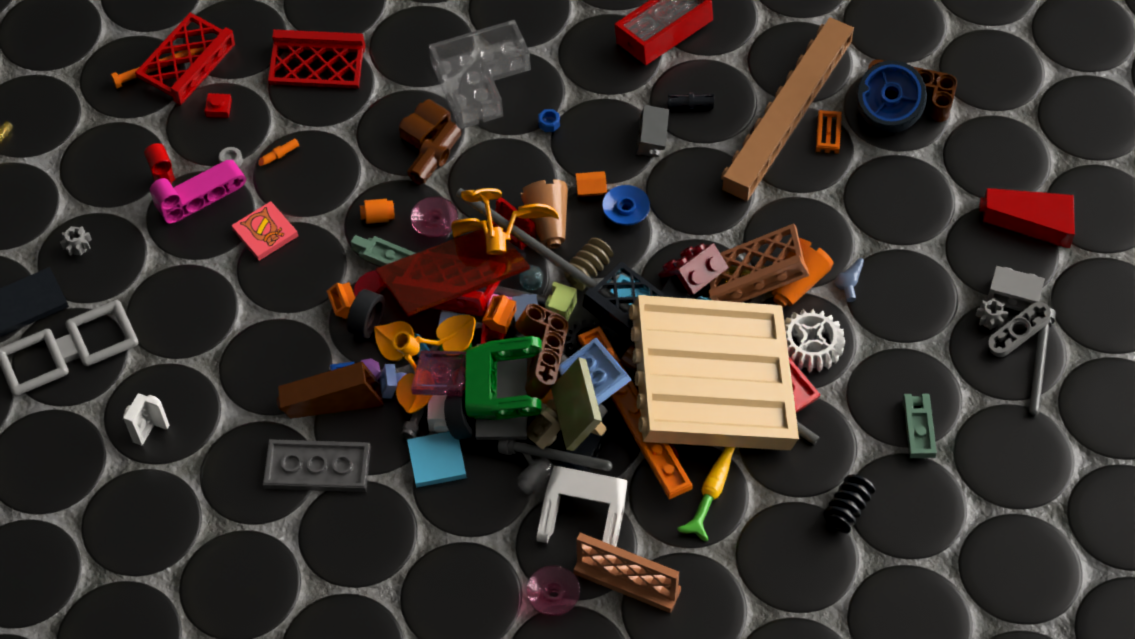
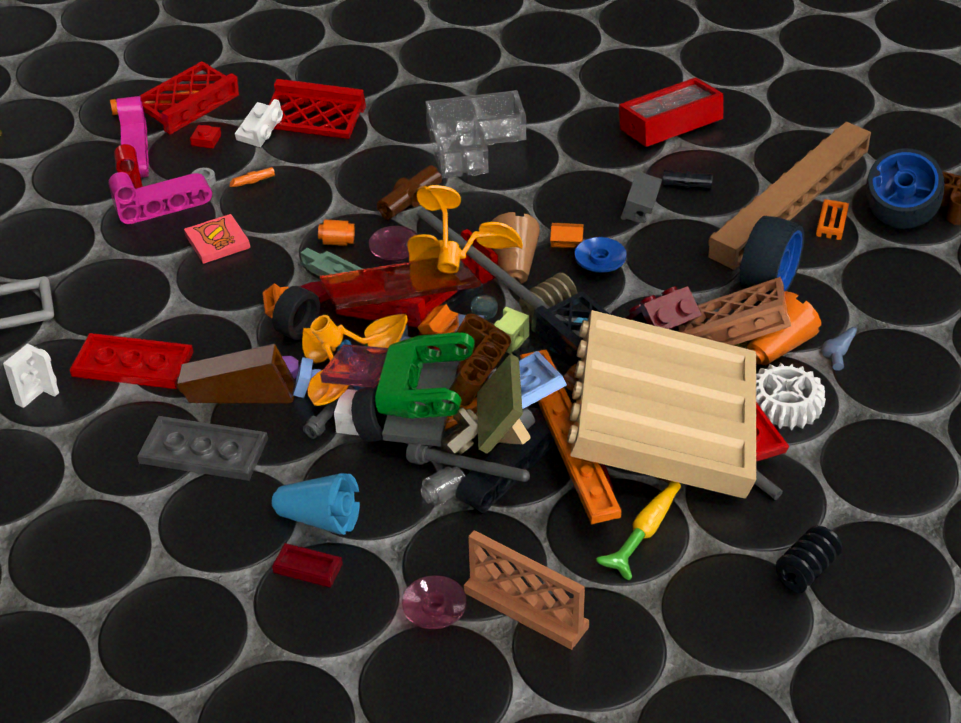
camera: 10 degrees right, 15 degrees down
(76, 240) = (24, 223): light grey gear -> none
(149, 115) = (134, 129): none -> dark pink beam
(226, 382) = (131, 360): none -> red tile
(268, 85) = (259, 123): none -> white bracket
(423, 123) = (405, 164): reddish brown brick -> none
(436, 459) = (336, 454): medium azure tile -> none
(436, 511) = (320, 502): none -> dark azure cone
(438, 569) = (307, 565): none -> dark red tile
(549, 120) = (535, 179): blue tile -> none
(584, 486) = (493, 496): white connector -> none
(782, 195) = (772, 252): none -> black wheel
(919, 426) = (904, 495): sand green plate -> none

